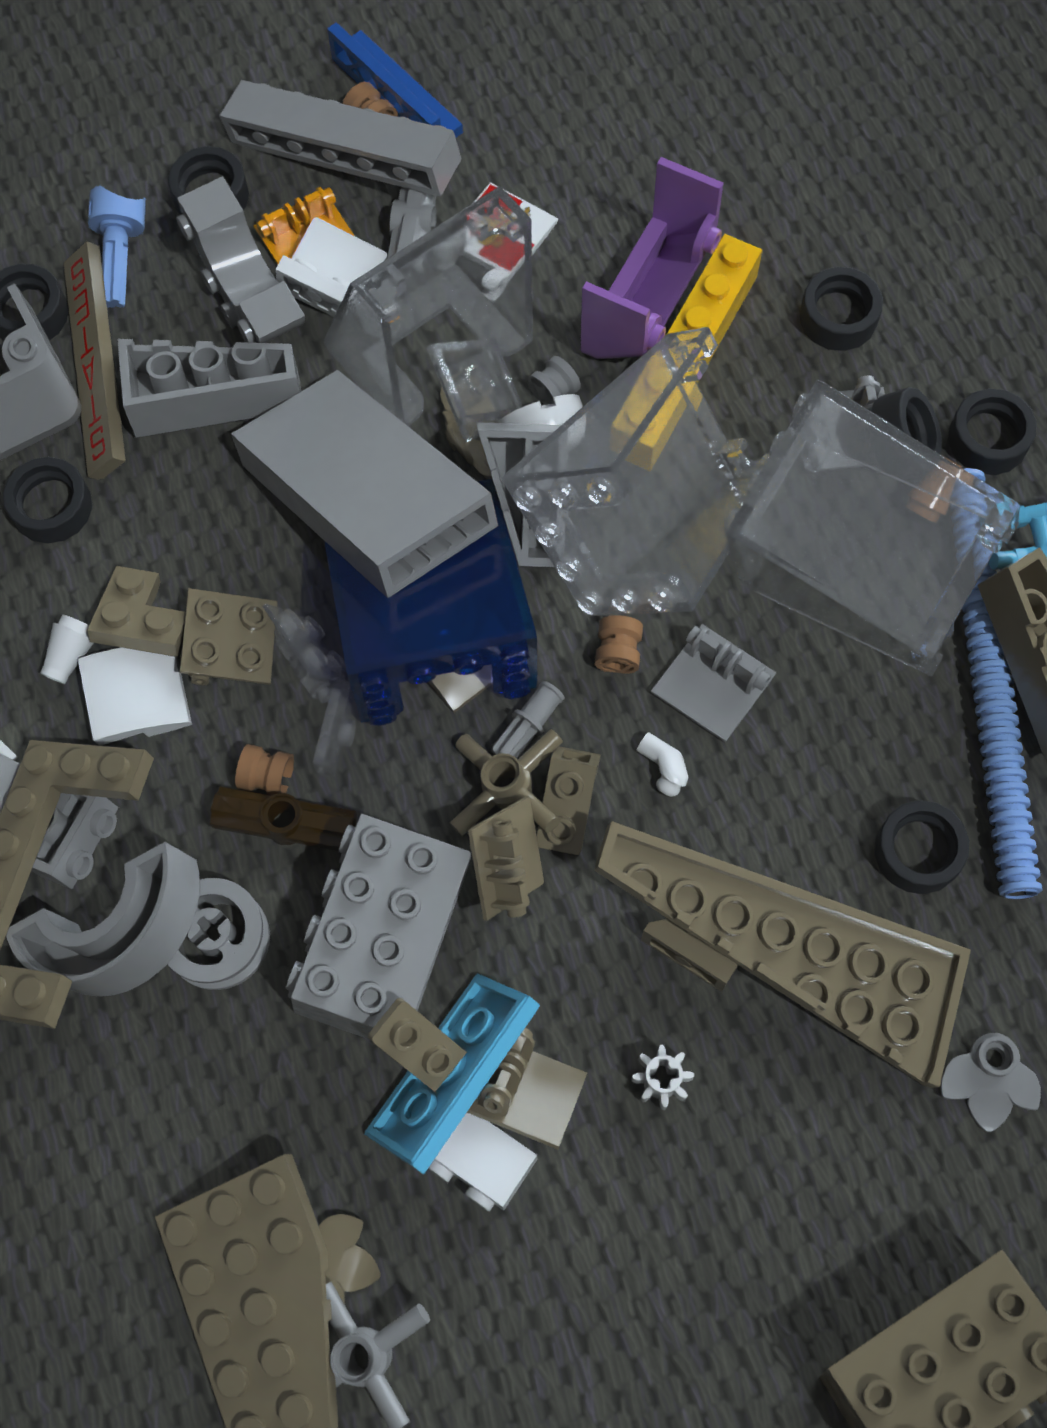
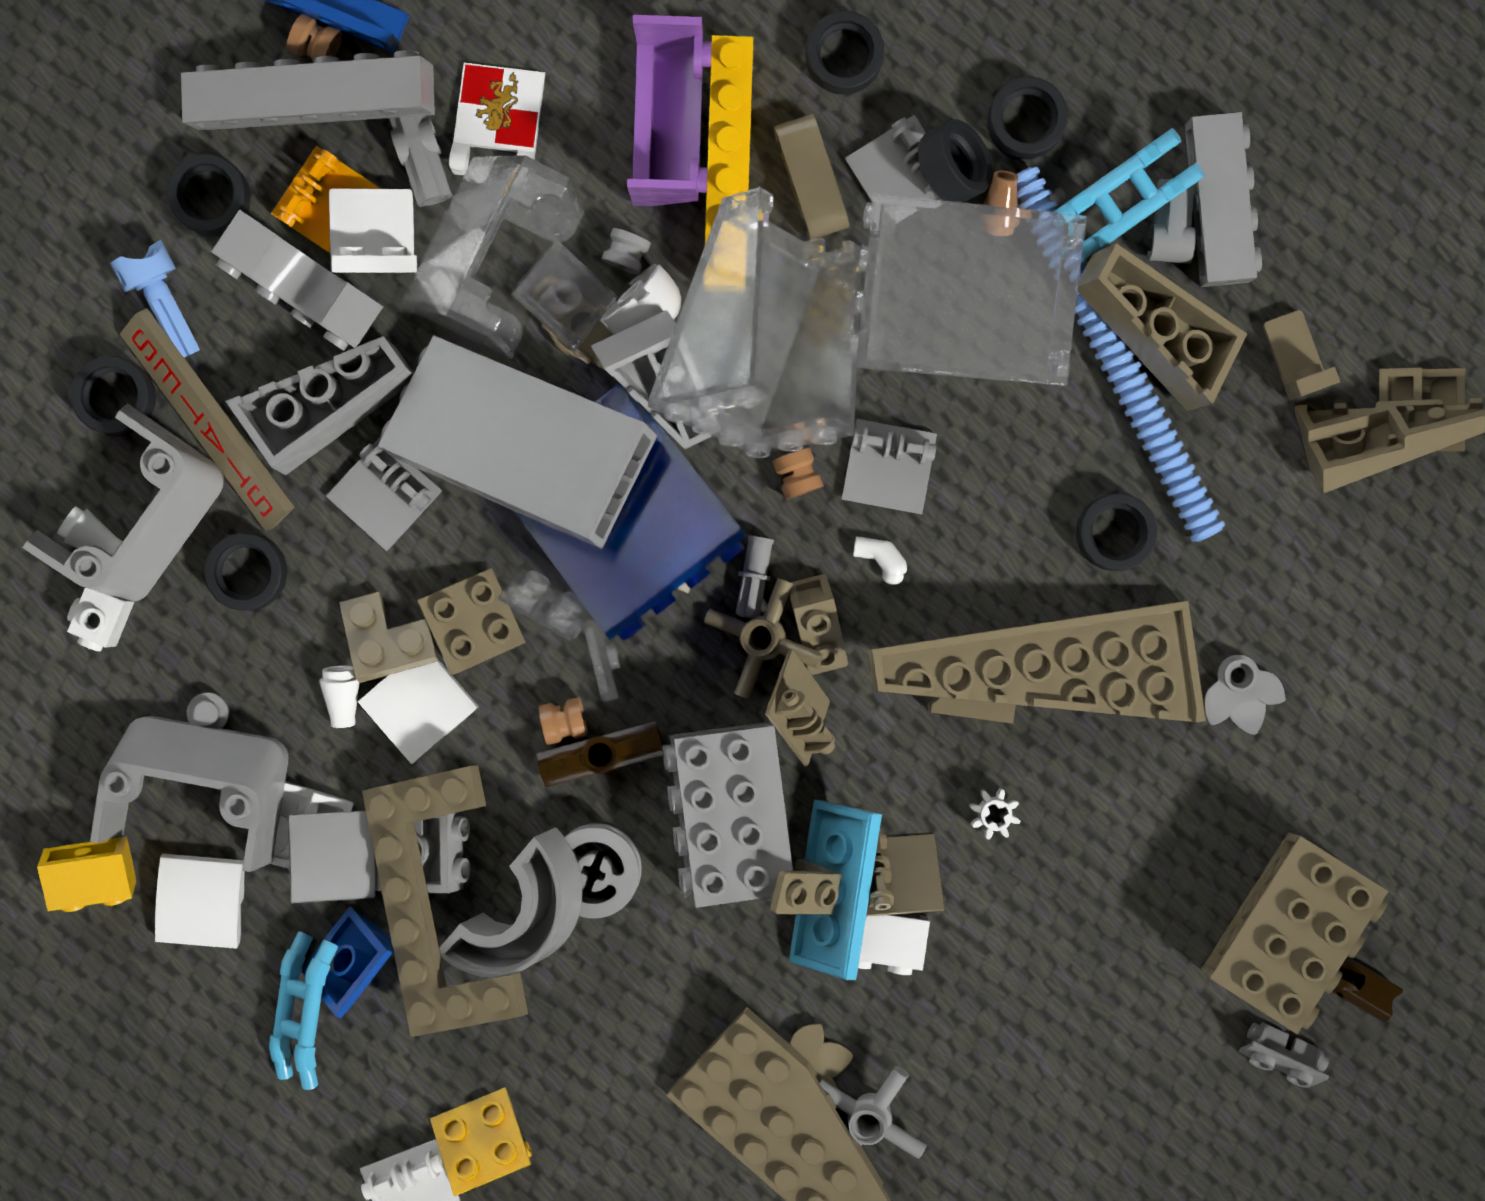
camera: 30 degrees left, 20 degrees up
(214, 492) = (383, 495): none -> light grey hinge
(760, 393) = (811, 176): none -> dark tan beam

